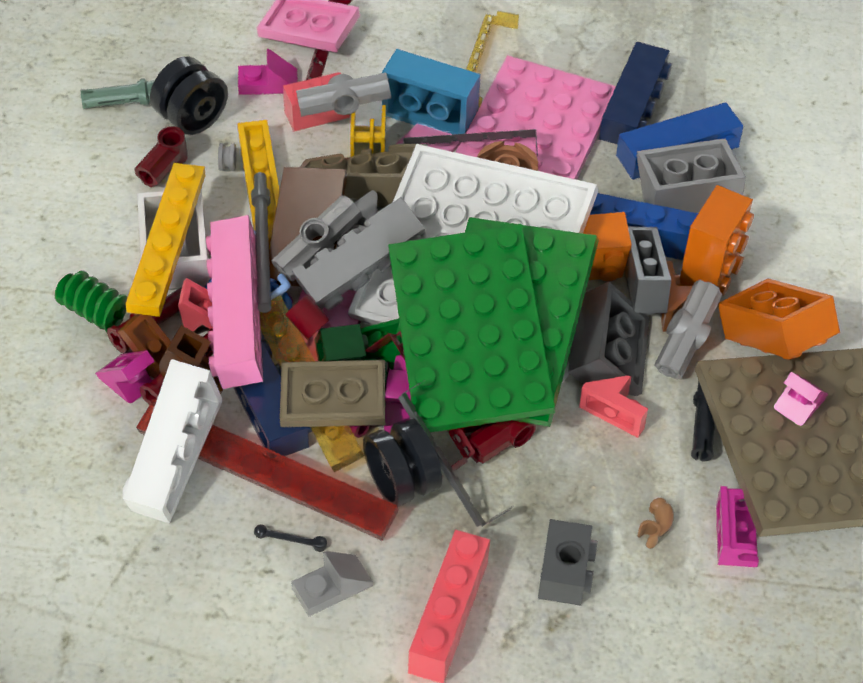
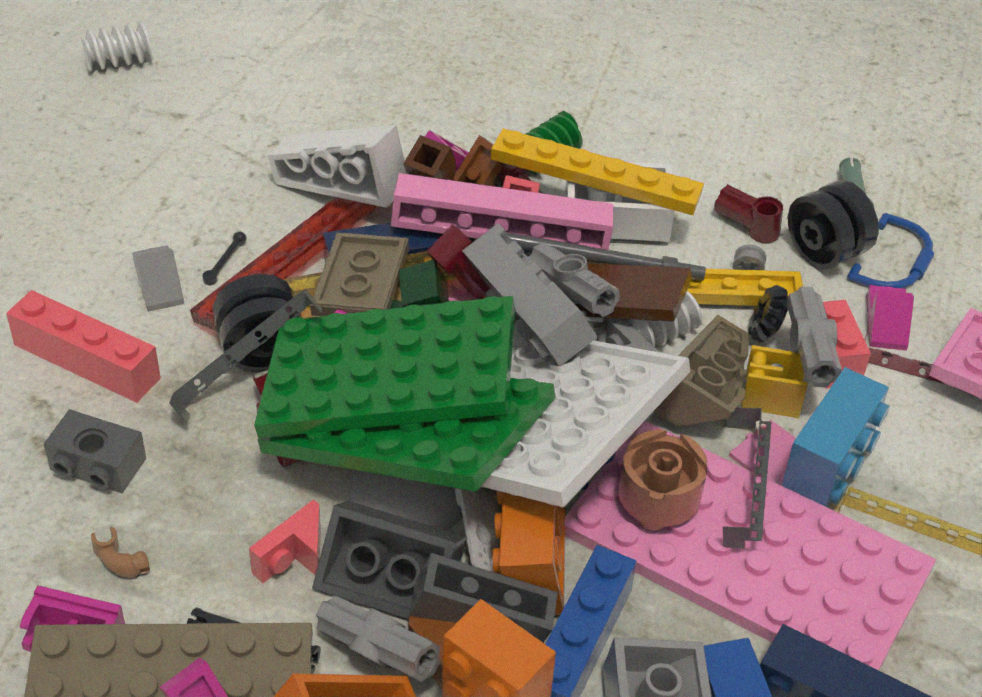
camera: 100 degrees right, 5 degrees down
(206, 60) = (919, 266): none -> blue piece
(303, 126) = (768, 314): none -> black gear

